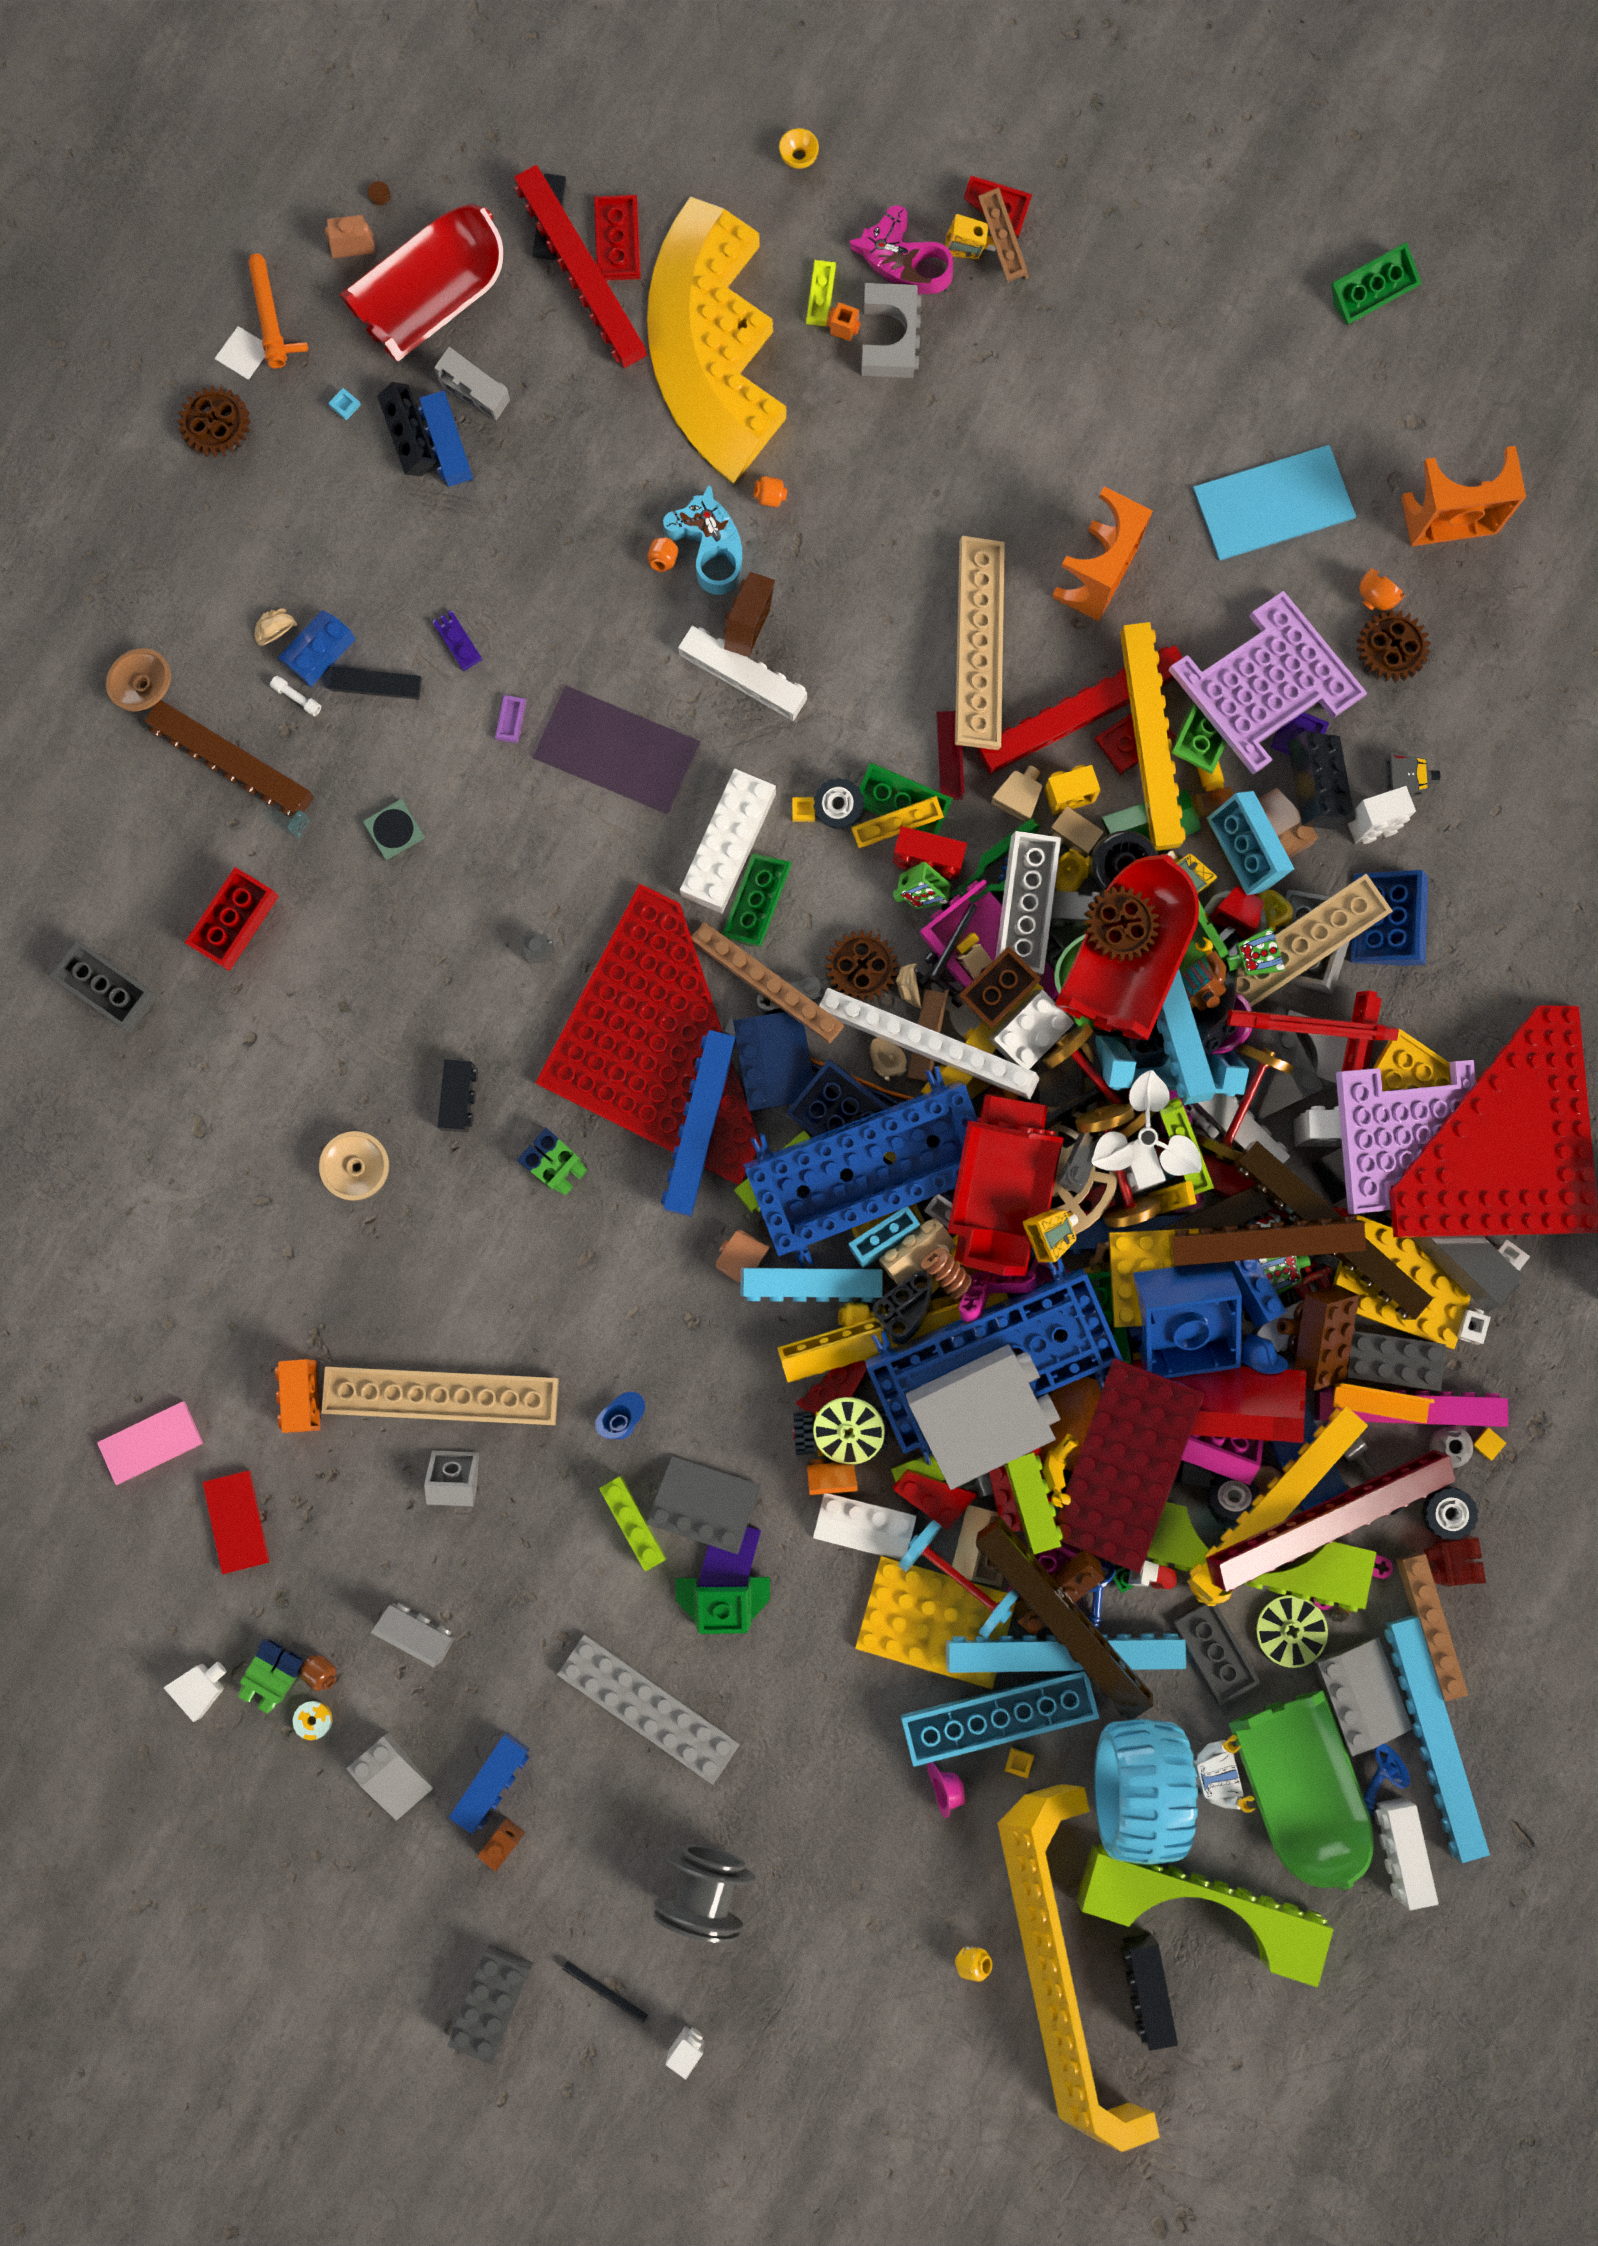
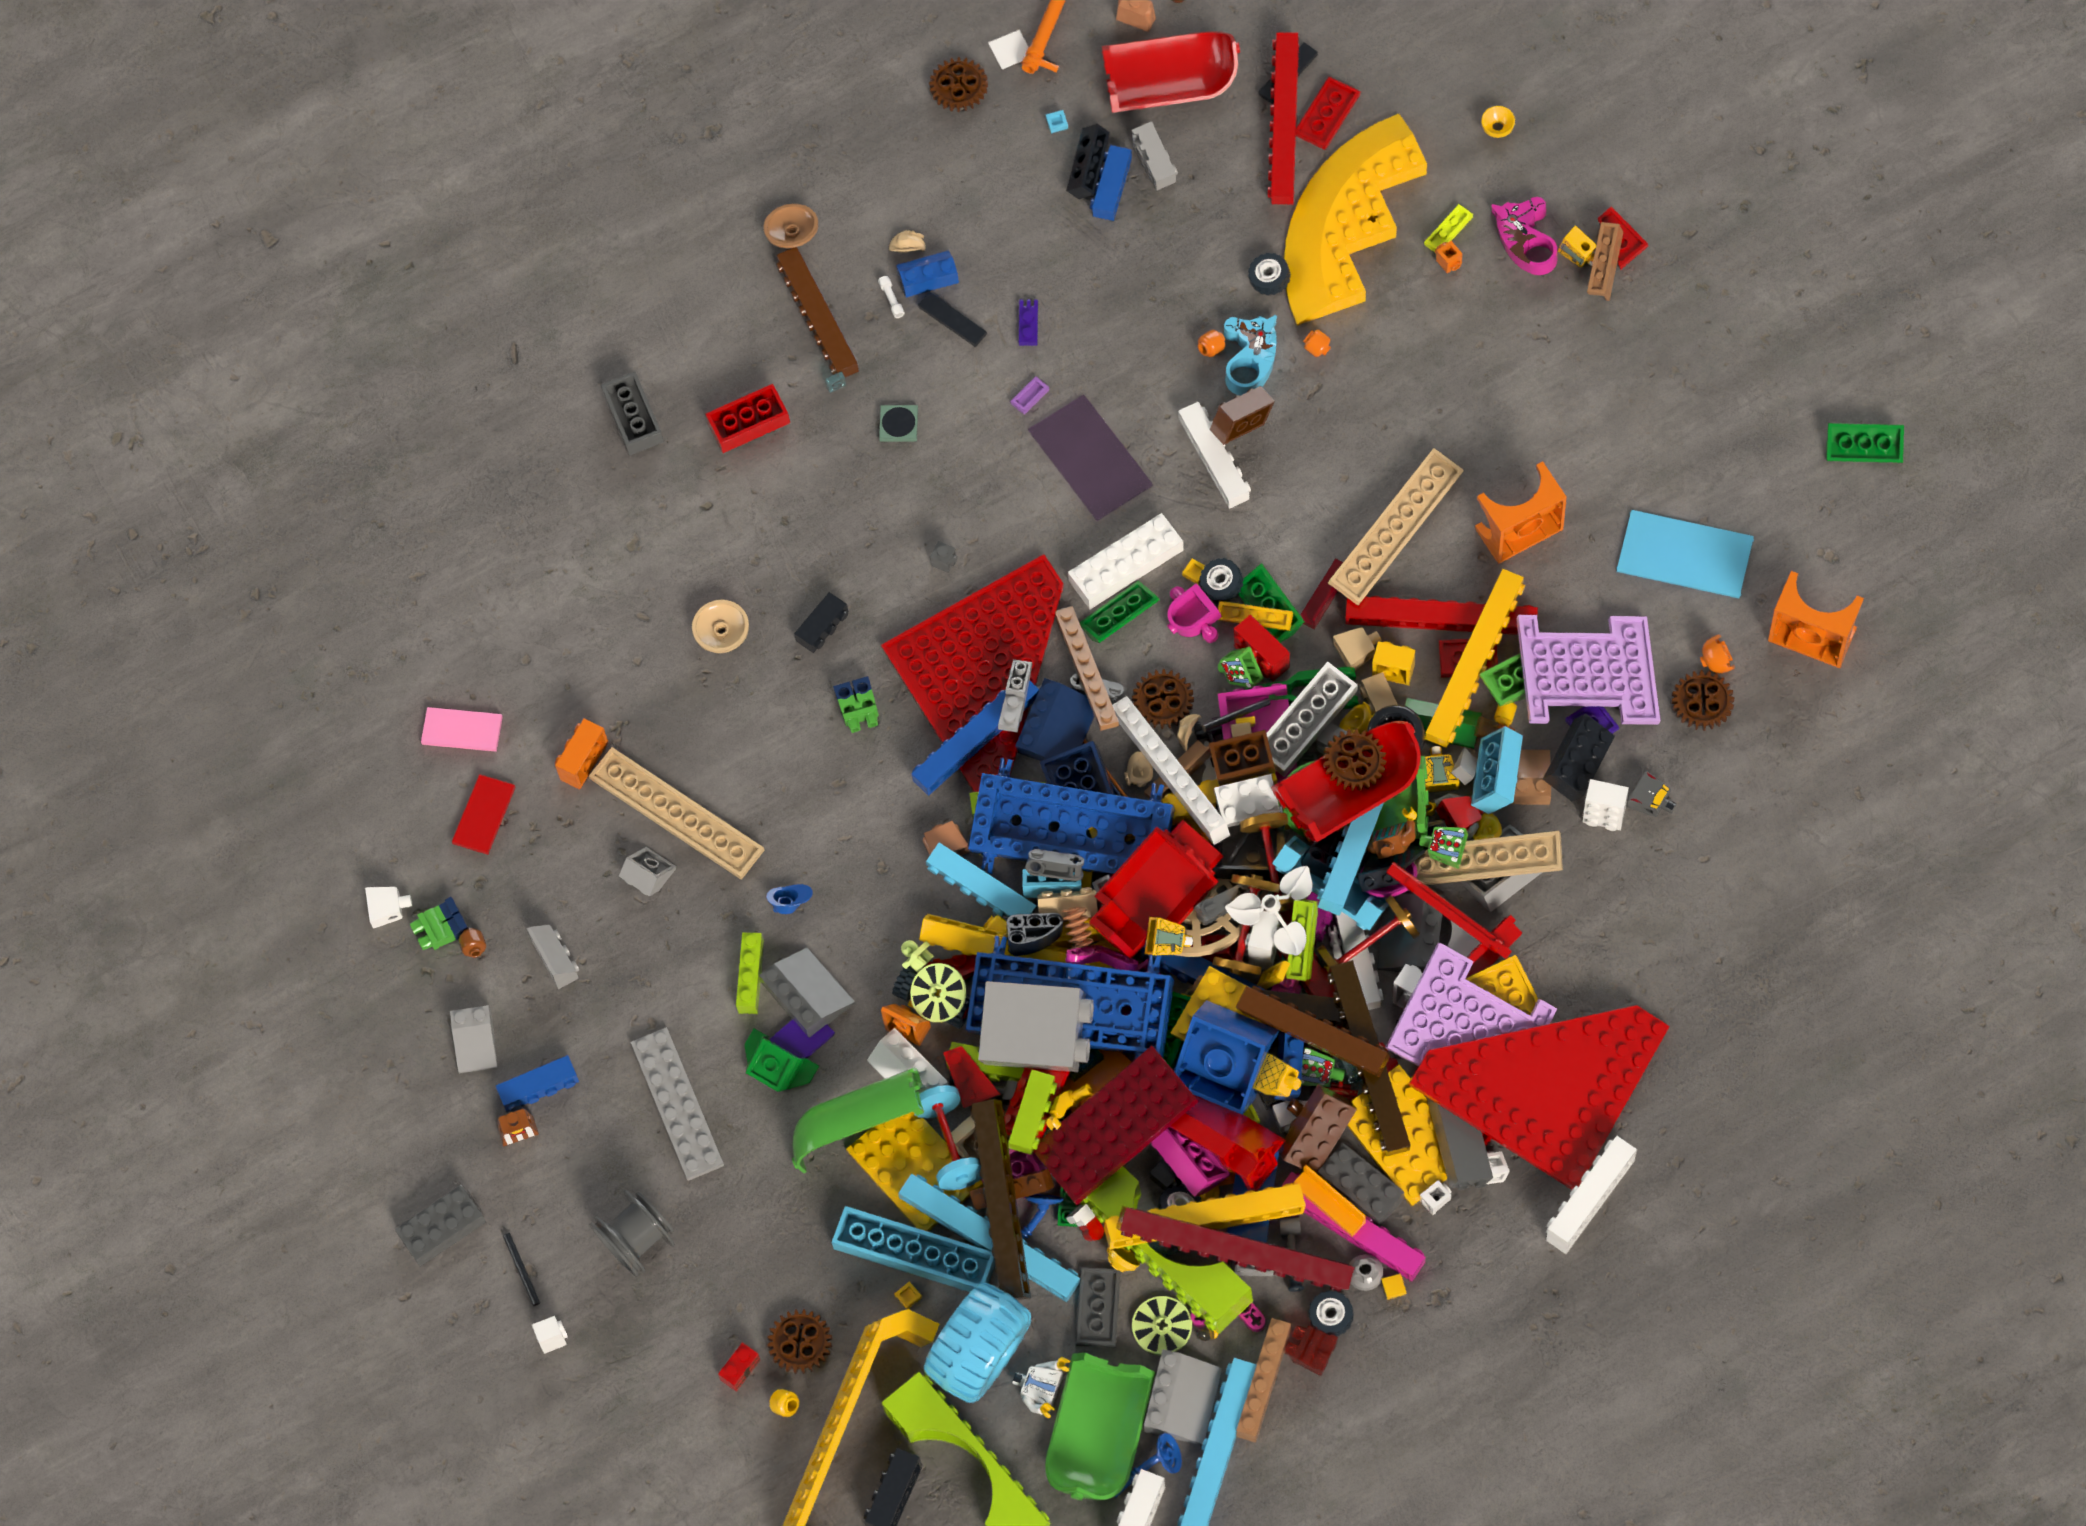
camera: 40 degrees right, 15 degrees down
(304, 1727) = (447, 981): light aqua piece -> none
(673, 431) = (1267, 264): none -> black wheel
(719, 1061) = (1015, 696): none -> light grey slope
(798, 1402) = (917, 956): none -> yellowish green hips
(833, 857) = (1192, 613): none -> dark pink piece
(854, 1616) = (856, 1112): none -> bright green panel
(882, 1221) = (1054, 865): none -> dark grey piece
(901, 303) = (1477, 303): light grey arch -> none
(901, 1954) = (739, 1366): none -> red brick
(925, 1894) = (817, 1343): none -> reddish brown gear
(947, 1788) = (847, 1278): dark pink piece -> none
(1212, 857) = (1465, 767): none -> light grey slope
(1261, 1355) = (1264, 1116): blue piece -> none
(1262, 1311) = (1276, 1077): none -> yellow torso
(1401, 935) = (1571, 892): blue slope -> none

